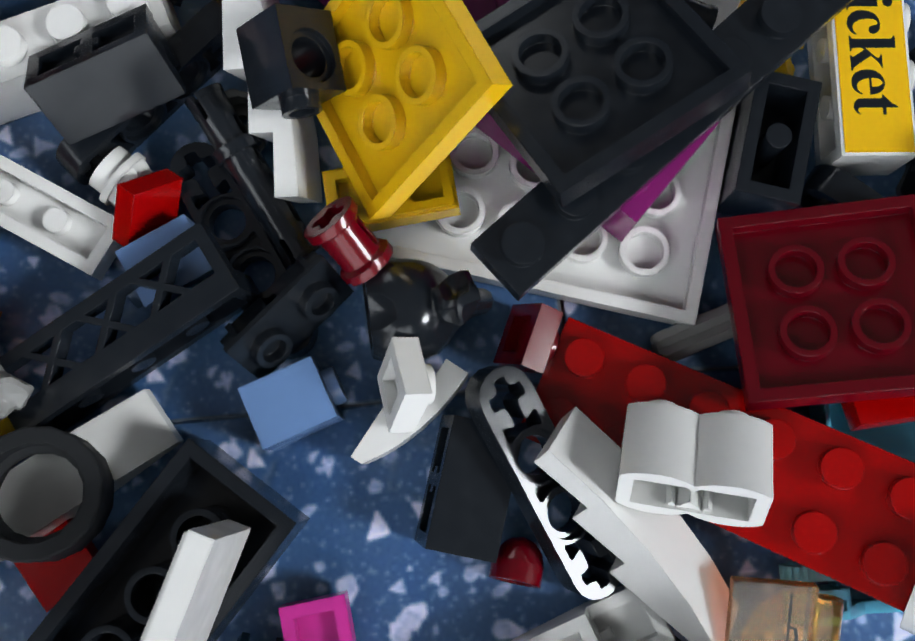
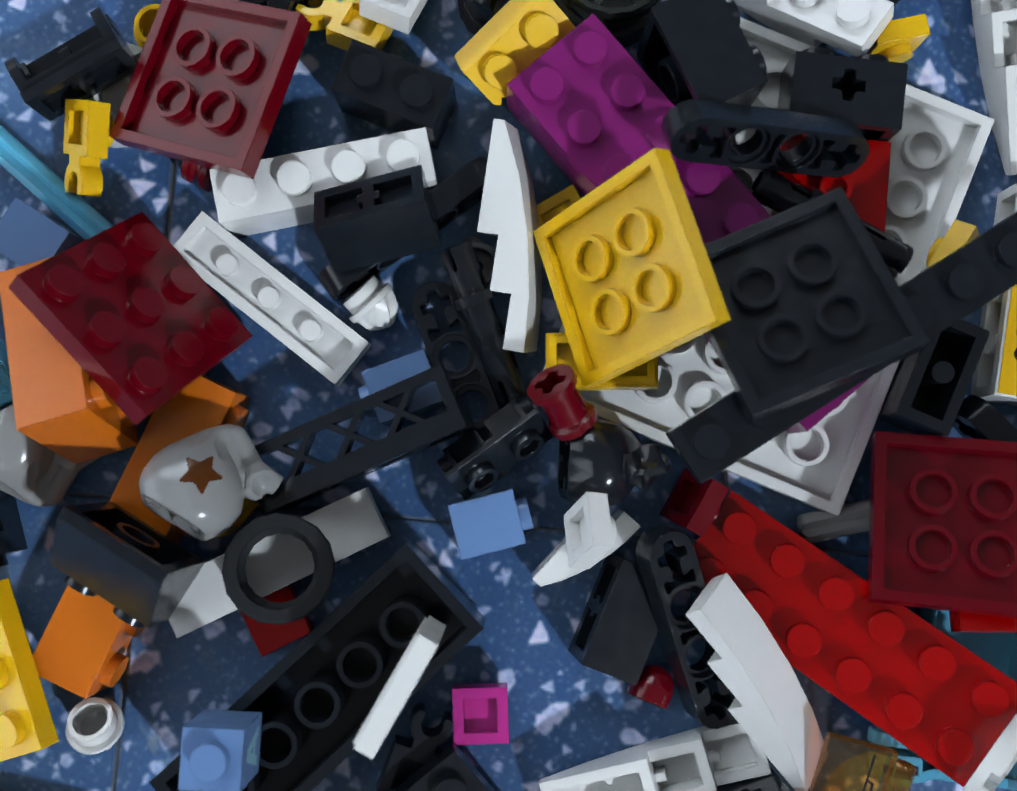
camera: 15 degrees right, 5 degrees up
(145, 205) = (390, 335): red tile -> none
(291, 60) = (541, 244): black brick -> none
(696, 464) = (818, 640): white brick -> none

